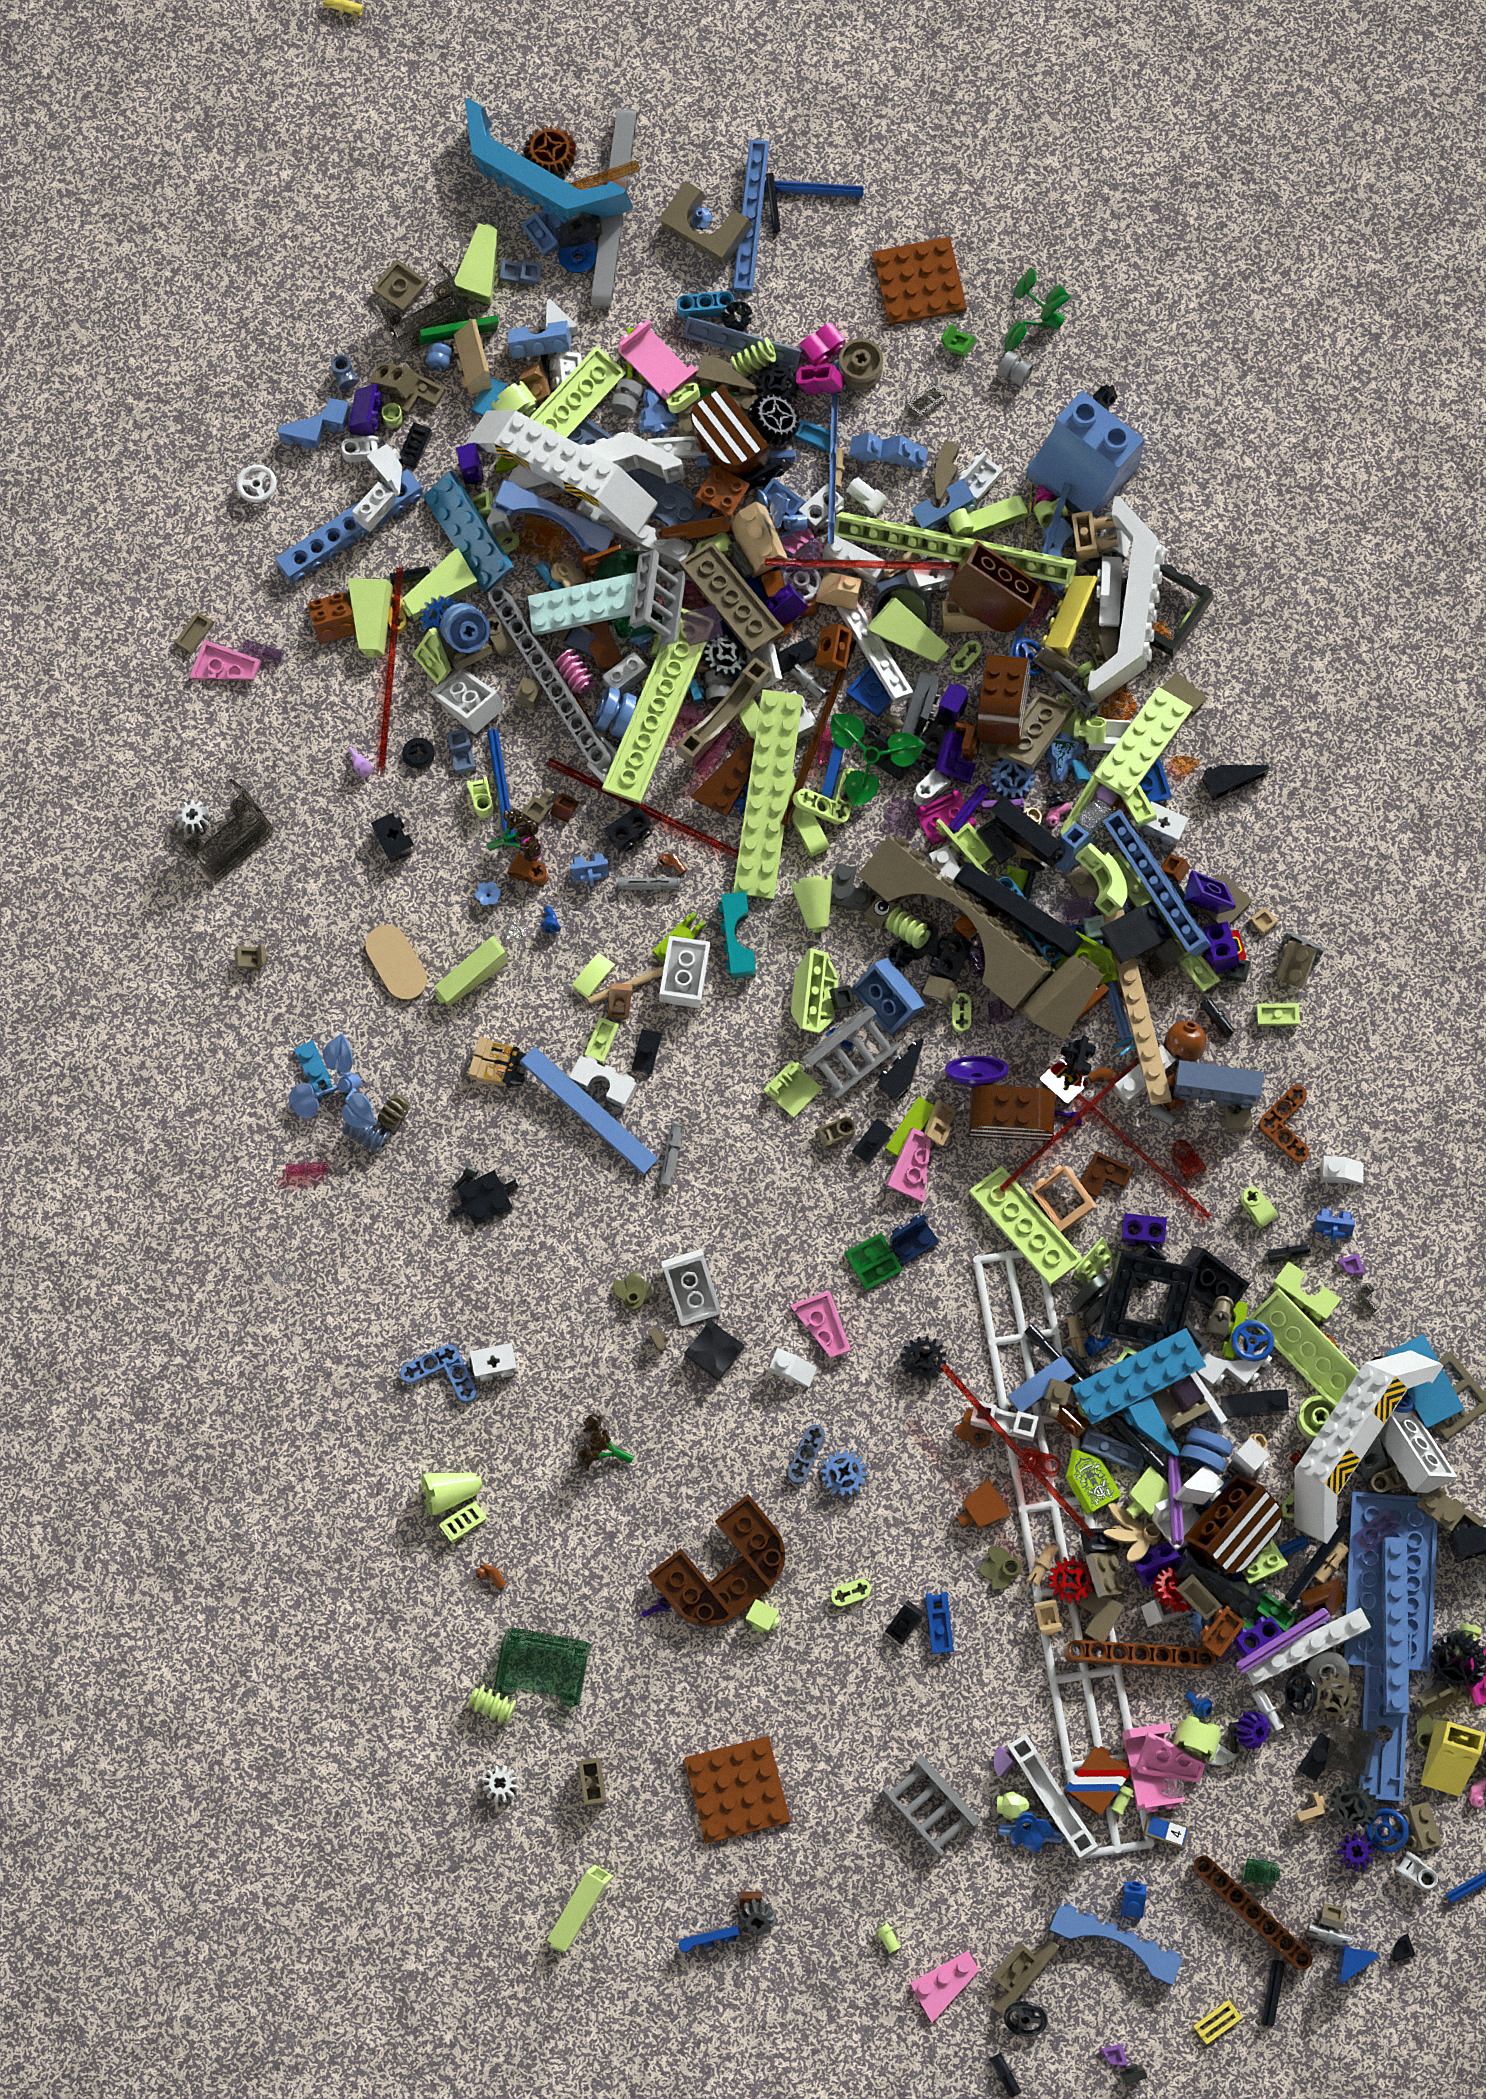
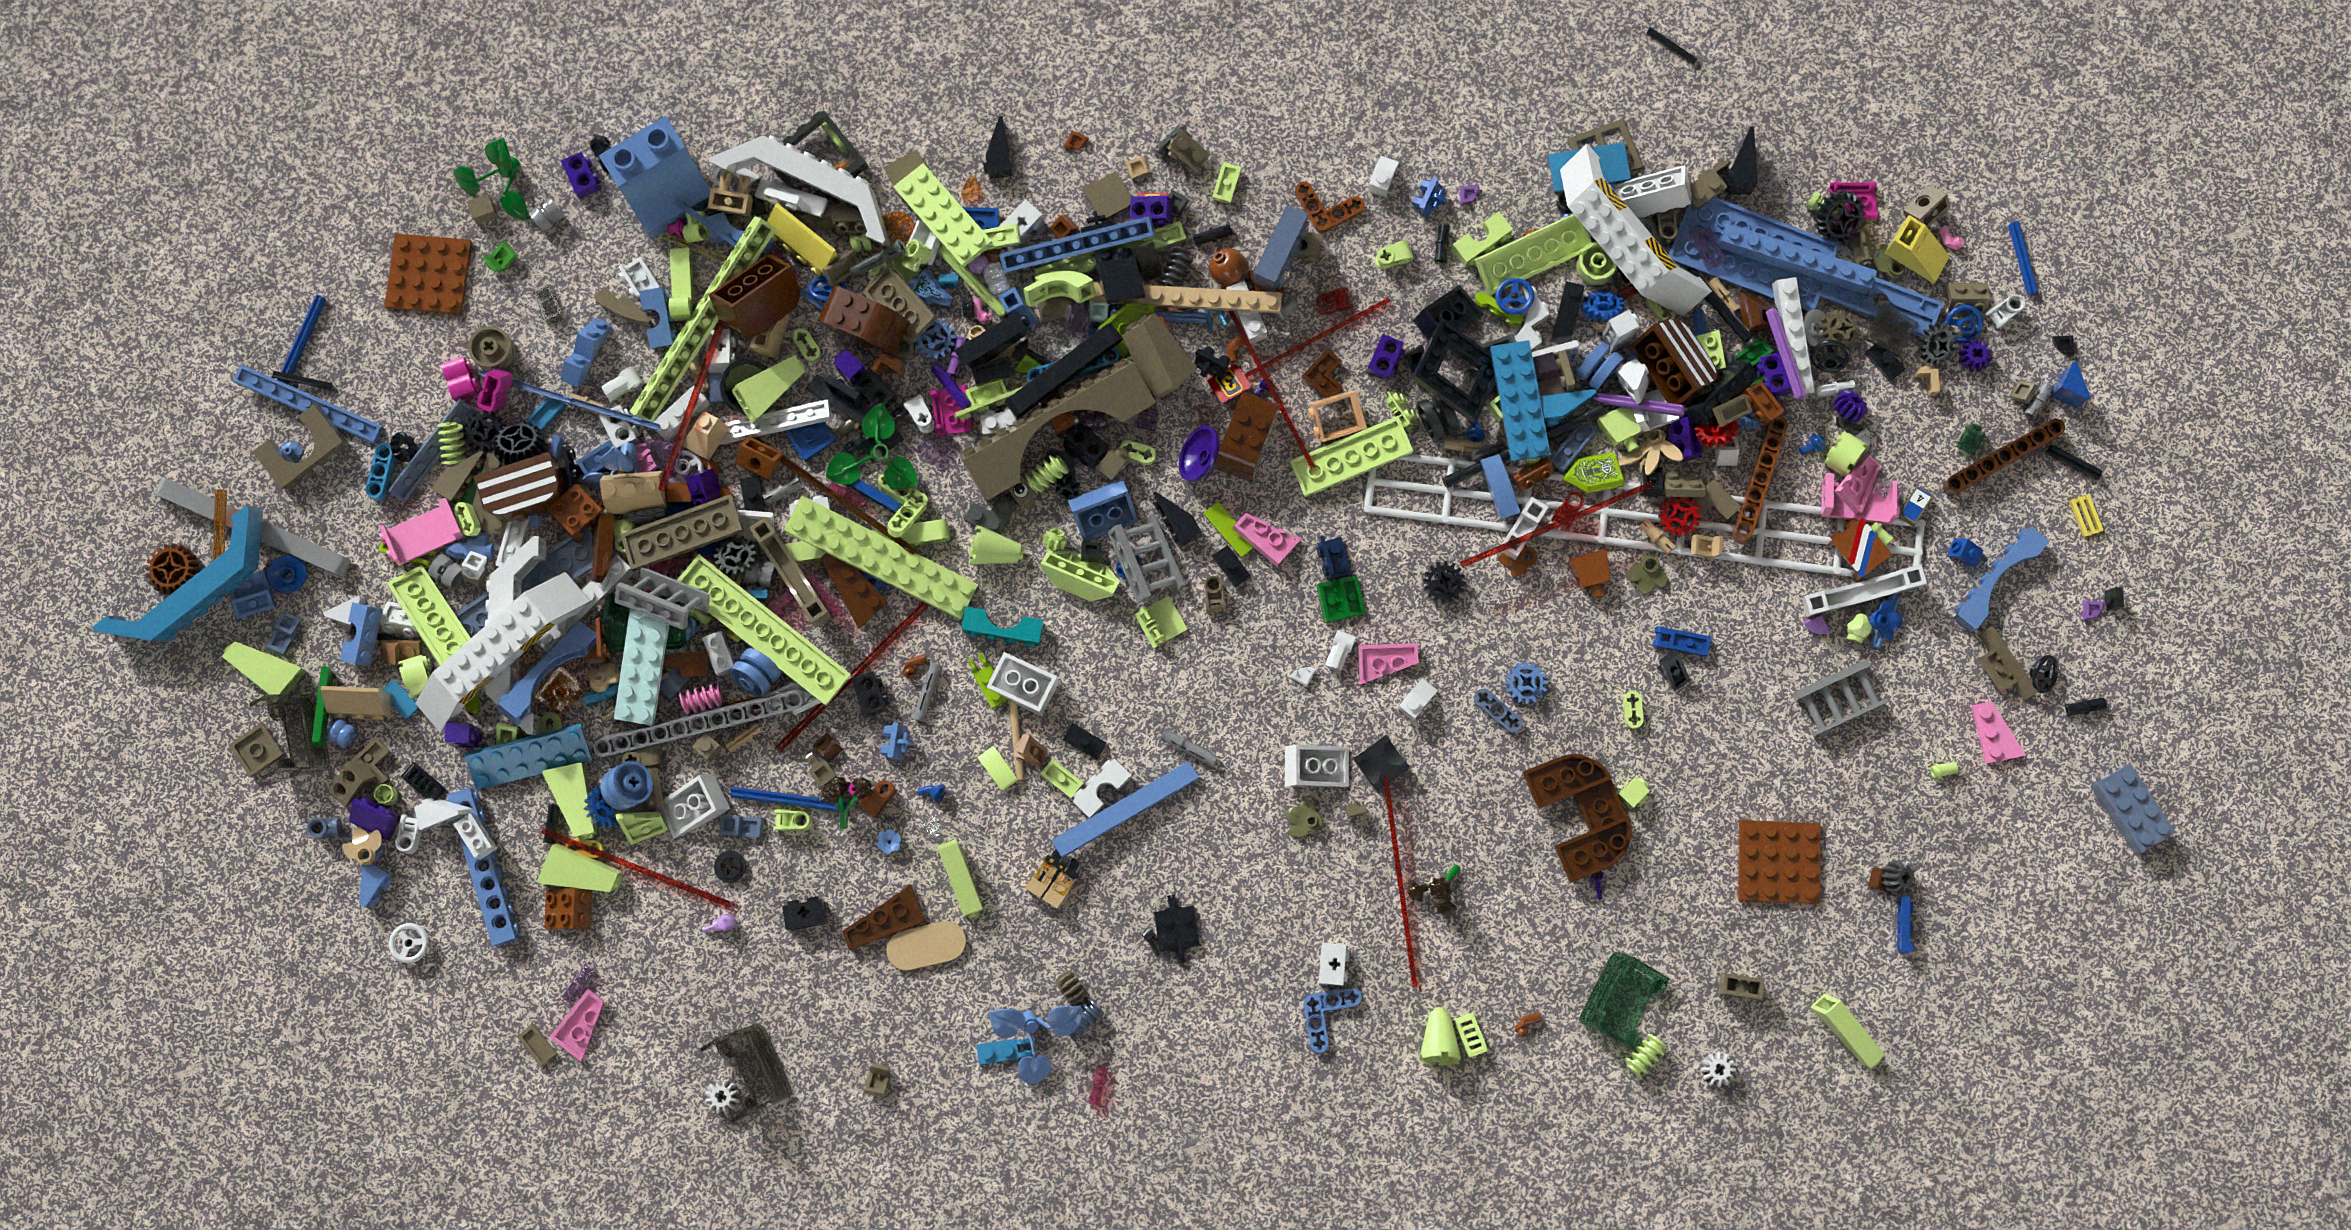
camera: 70 degrees left, 5 degrees up
(337, 408) = (363, 843): none -> tan plate
(415, 921) = (887, 919): none -> reddish brown wing
(549, 724) = (743, 737): none -> tan axle
(579, 230) = (264, 565): clear smoke slope -> none
(598, 1403) = (1400, 881): none -> clear red piece
(635, 419) = (474, 570): none -> white leg
(702, 625) = (700, 566): piece -> none
(782, 1247) = (1303, 675): none -> white tile
(825, 1275) = (1341, 647): none -> white piece
(842, 958) = (1055, 540): none -> yellowish green gear
(939, 1122) = (1236, 504): tan slope -> none
(950, 759) = (902, 387): dark purple plate -> none
(1001, 308) = (483, 208): none -> dark tan brick
(1056, 1393) = (1515, 476): dark tan plate -> none
(1063, 384) = (578, 176): none -> dark purple brick
(1166, 991) = (1175, 267): none -> dark grey piece
(1208, 893) = (1101, 203): dark purple slope -> none
(1220, 1316) = (1483, 317): dark tan piece -> none
(1271, 851) = (1075, 140): none -> dark orange tile
(1275, 1437) = (1602, 305): none -> blue gear
(1365, 1297) = (1502, 193): clear smoke arm -> none

